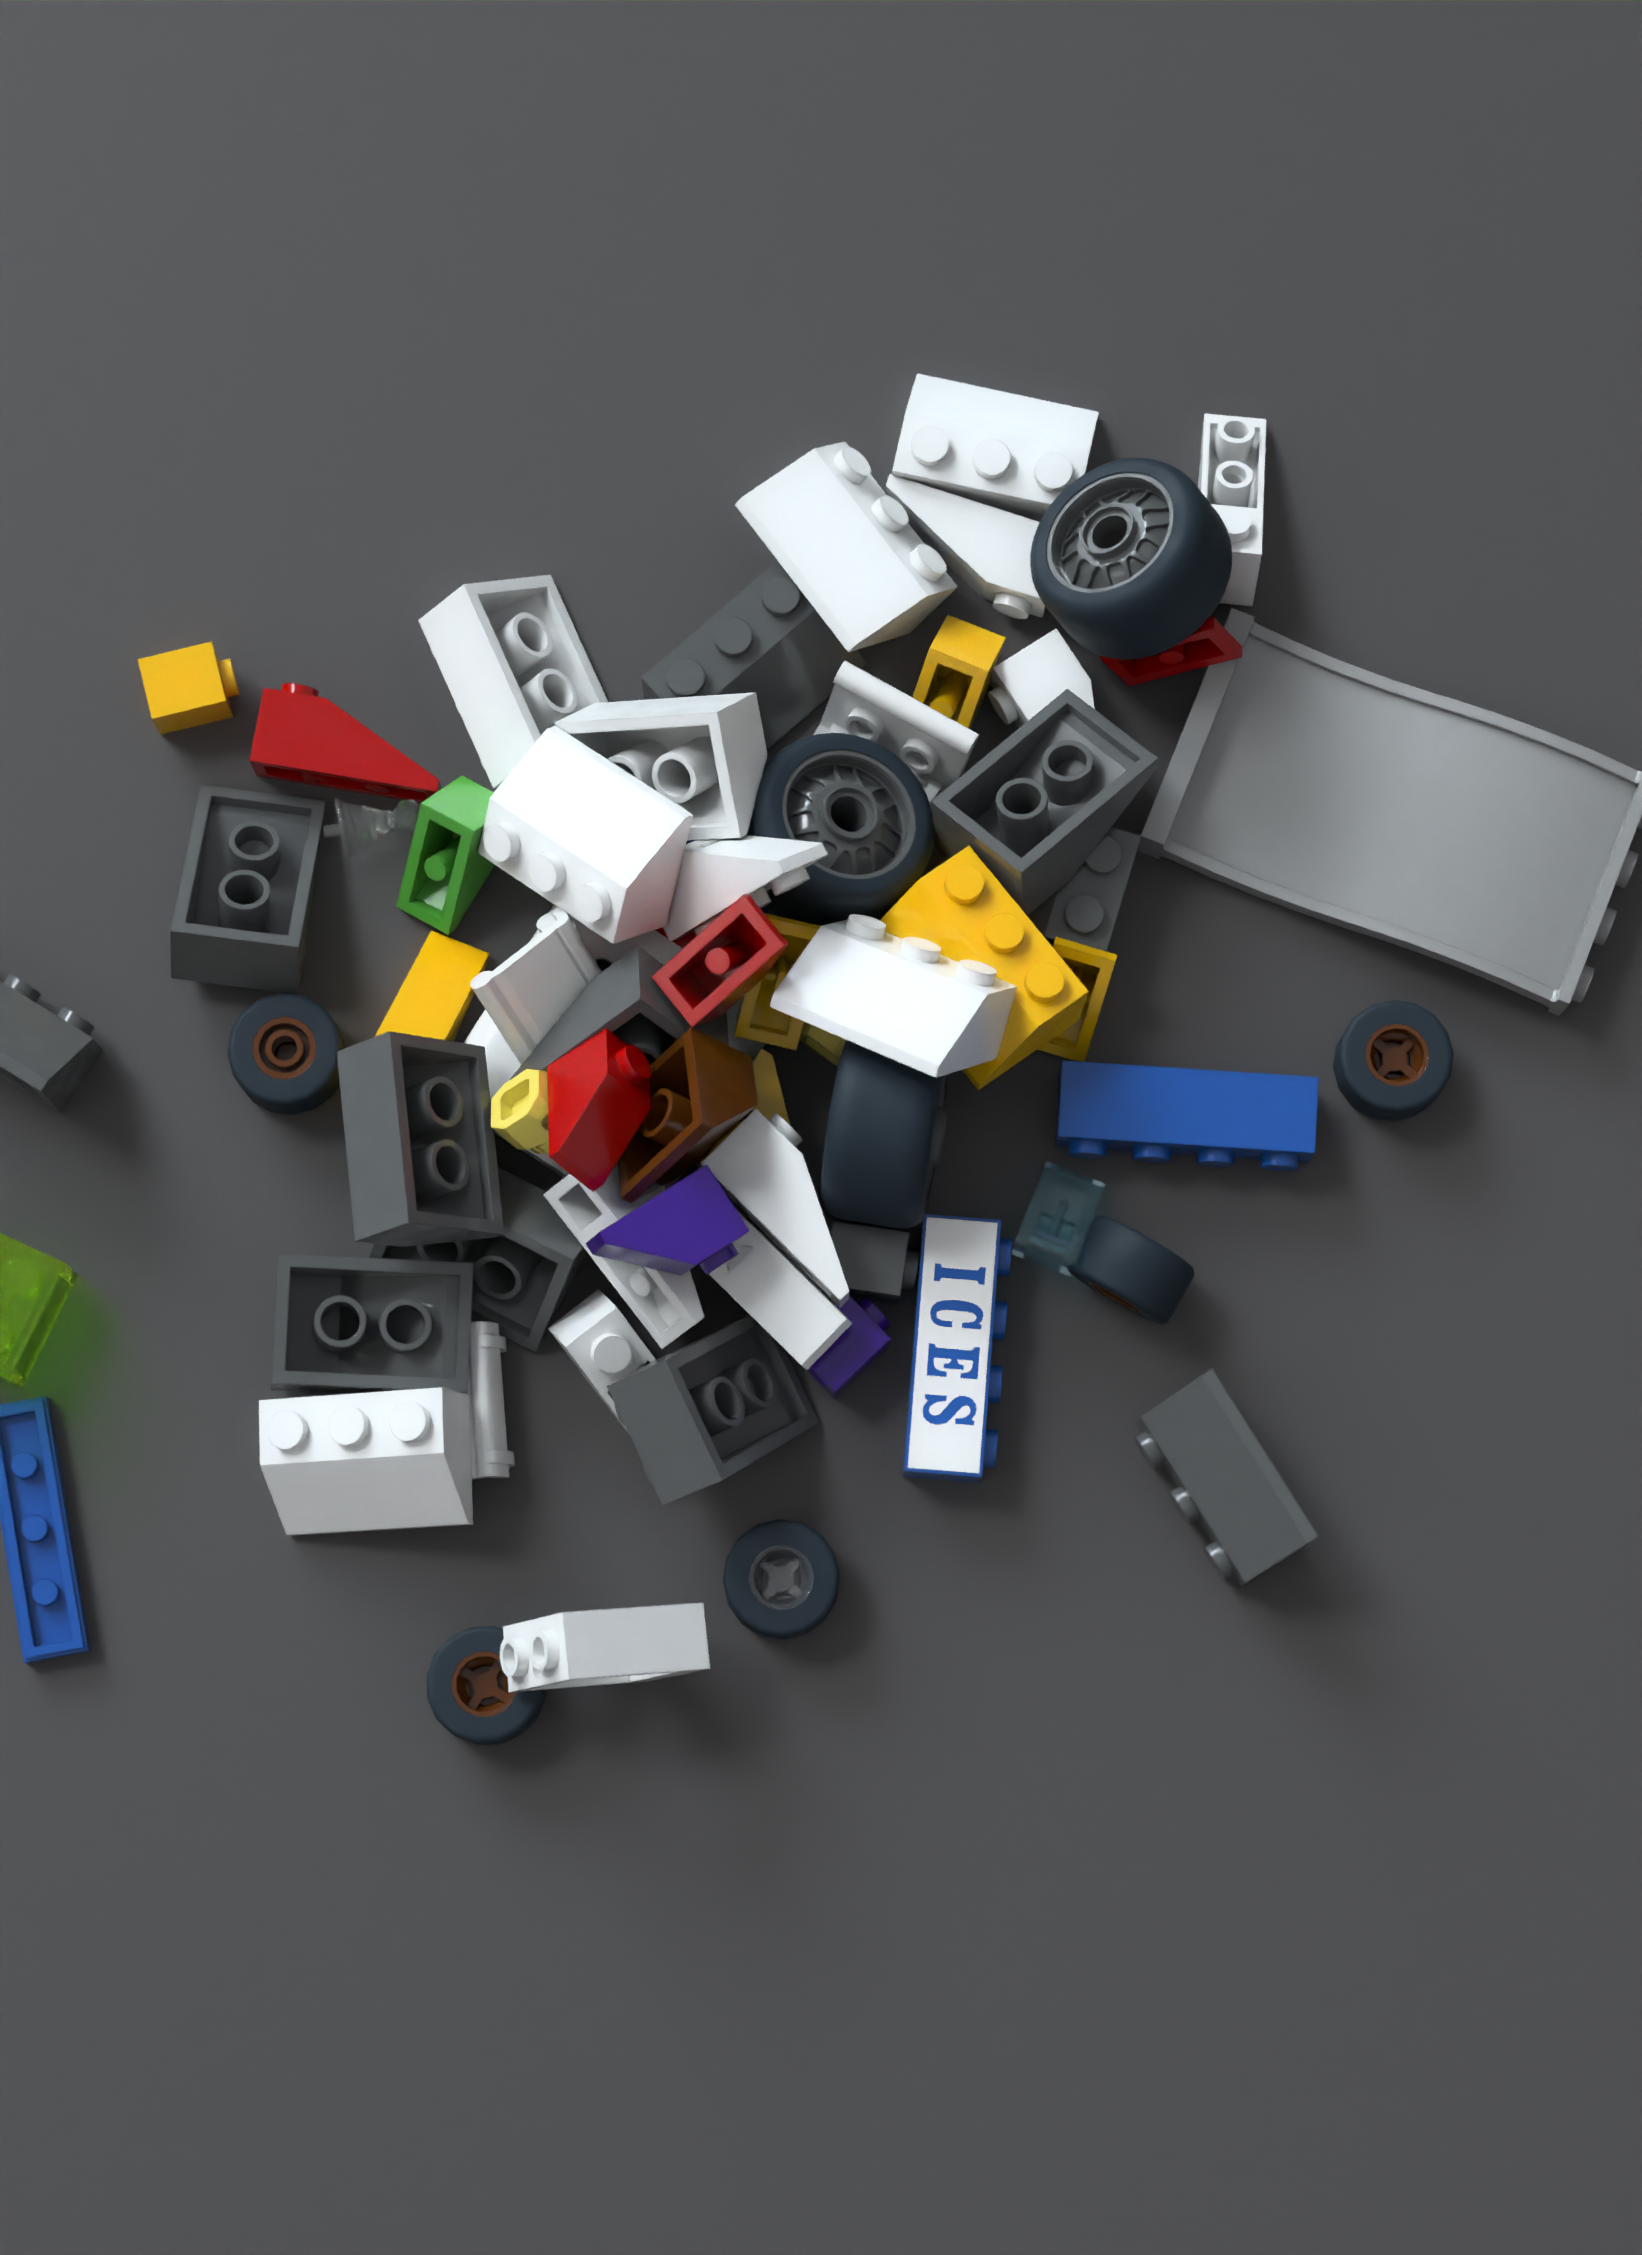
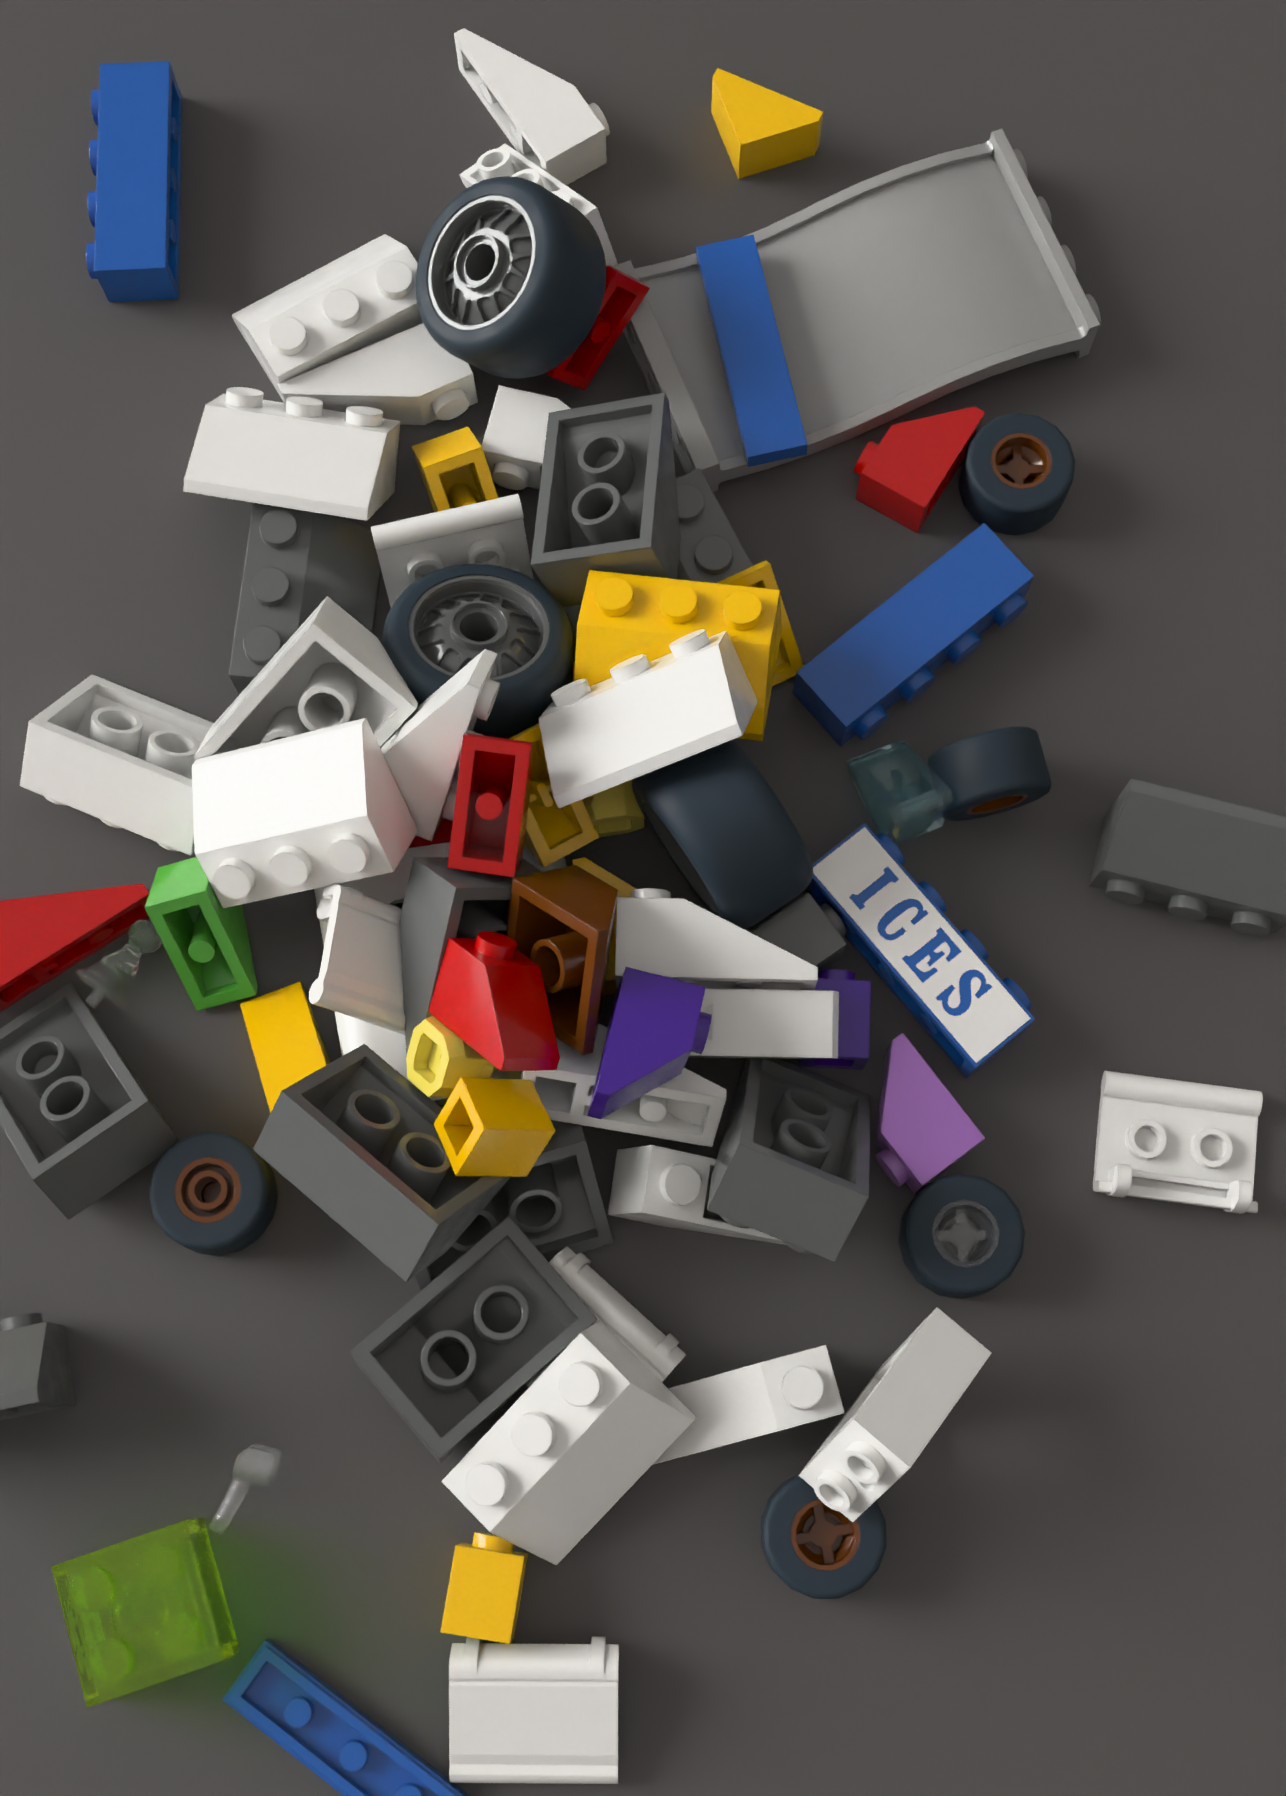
camera: 40 degrees left, 5 degrees down
(143, 1269) = (253, 1465): none -> clear hand
(179, 1615) = (534, 1713): none -> white piece
(223, 1502) = (484, 1589): none -> yellow brick
(514, 1191) = (493, 1127): none -> yellow brick
(524, 1553) = (756, 1401): none -> white slope
(830, 1471) = (918, 1120): none -> medium lavender slope
(942, 196) = (136, 182): none -> blue brick
(1008, 1664) = (1177, 1141): none -> white piece
(1281, 774) = (751, 351): none -> blue tile
(1311, 426) = (535, 109): none -> white slope
(1322, 982) = (915, 465): none -> red slope
(1478, 594) = (761, 125): none -> yellow slope

